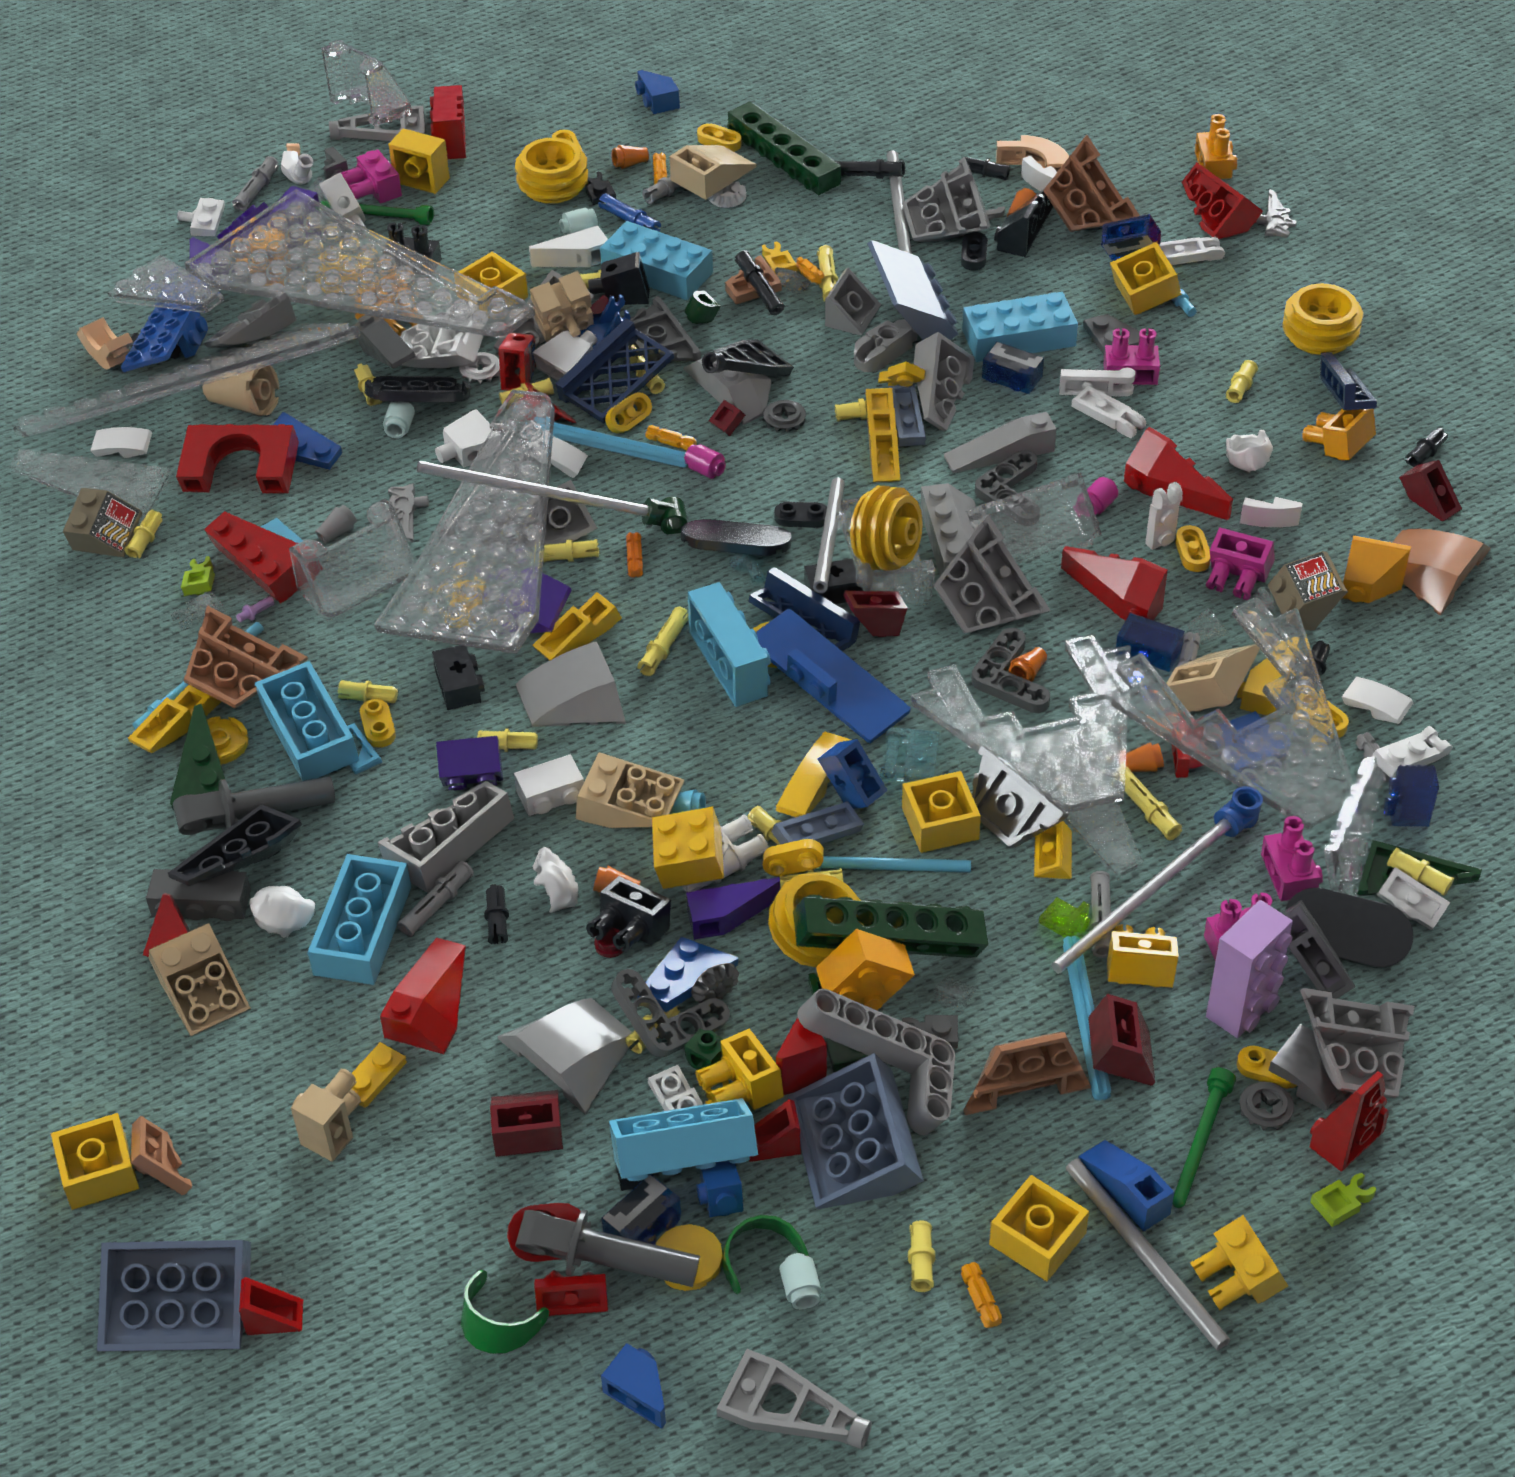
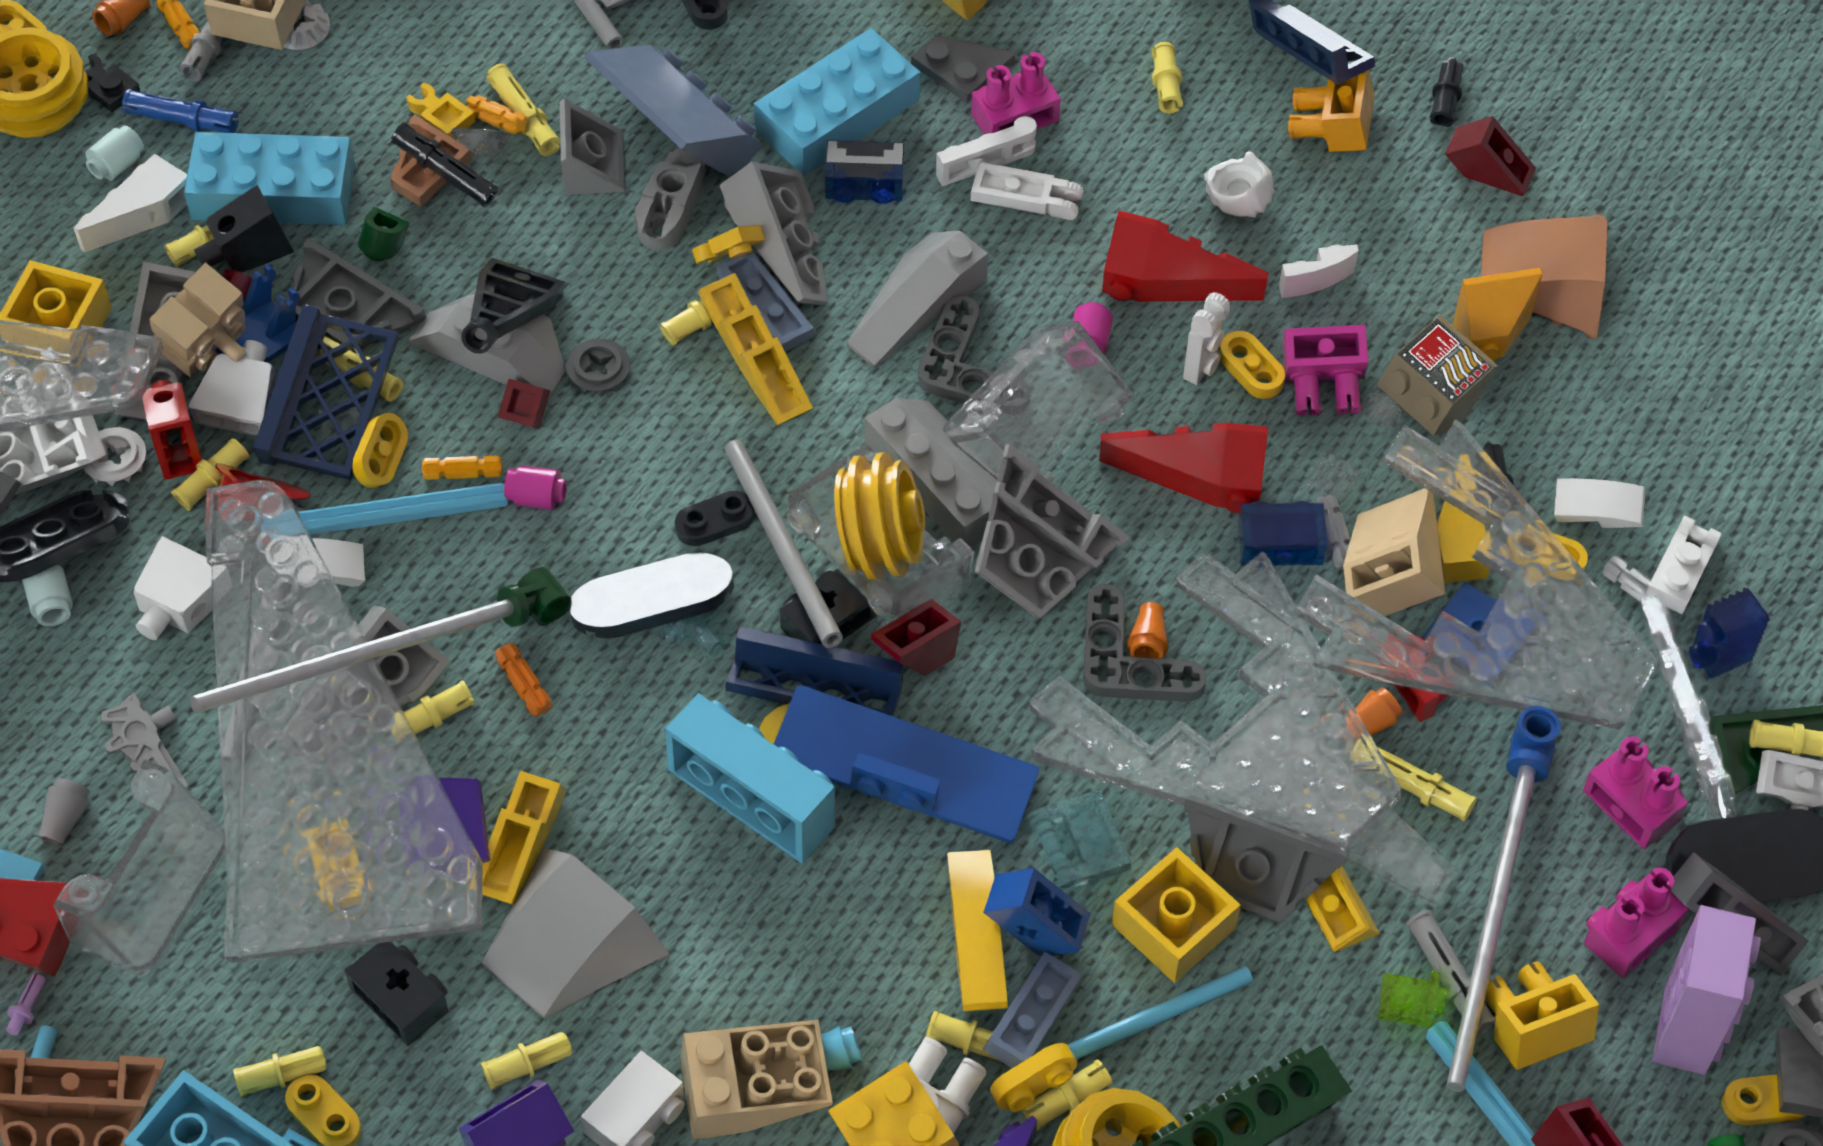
camera: 30 degrees left, 10 degrees up
(660, 646) = (649, 817): light yellow pin -> none

